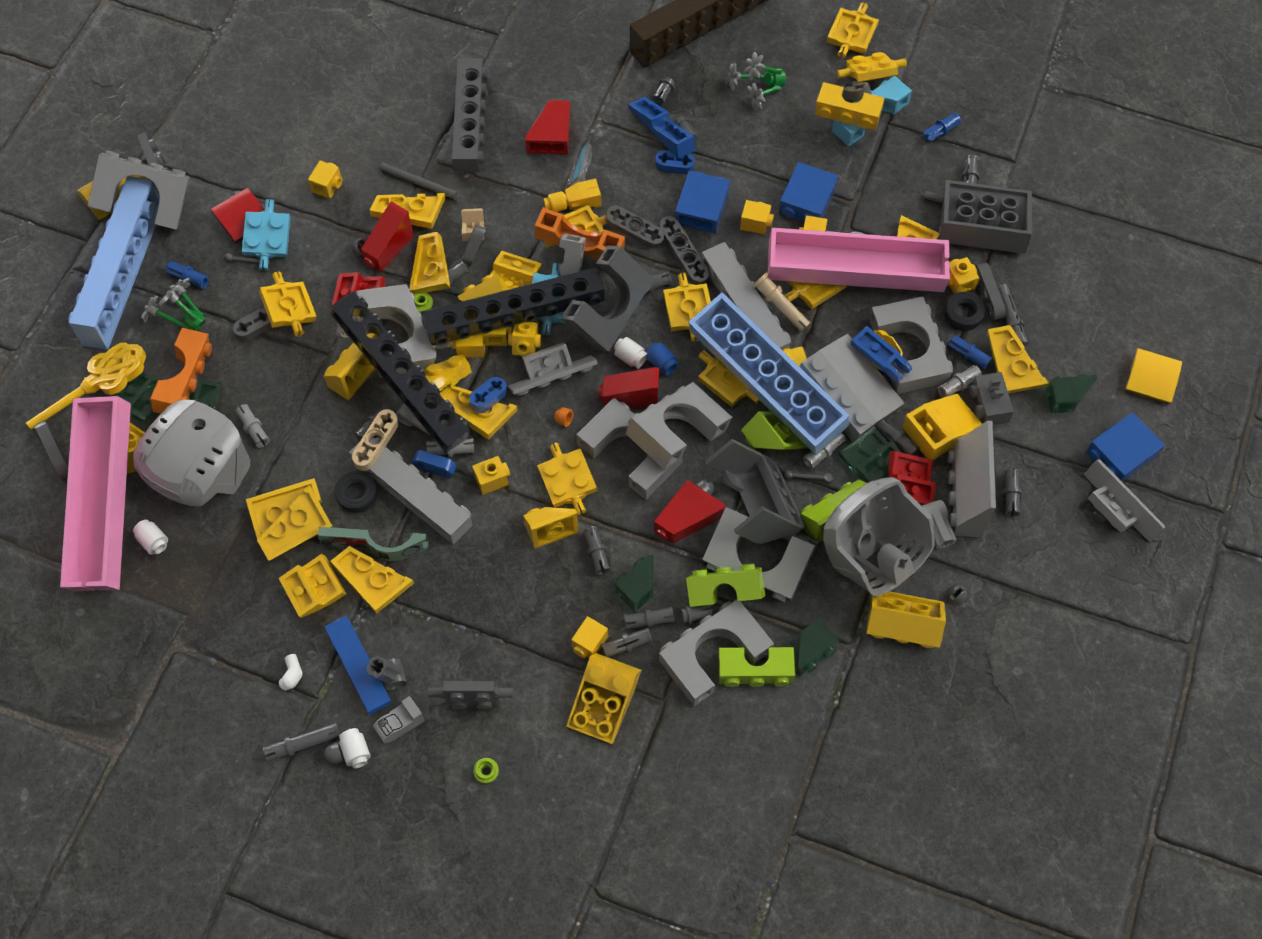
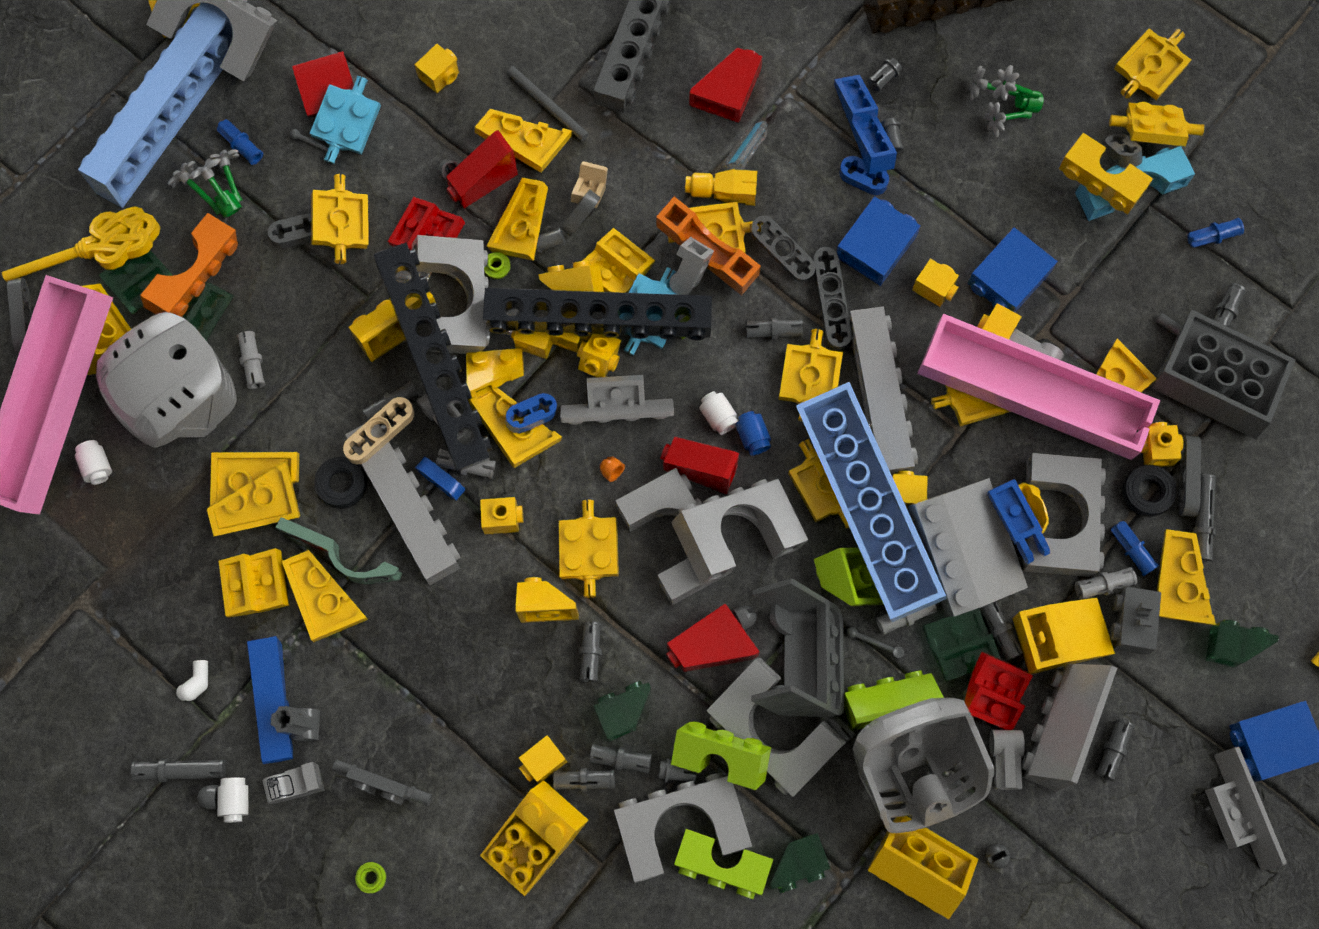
camera: 20 degrees right, 10 degrees up
(631, 284) = (747, 332): dark grey arch -> none
(774, 294) = (918, 397): tan pin -> none

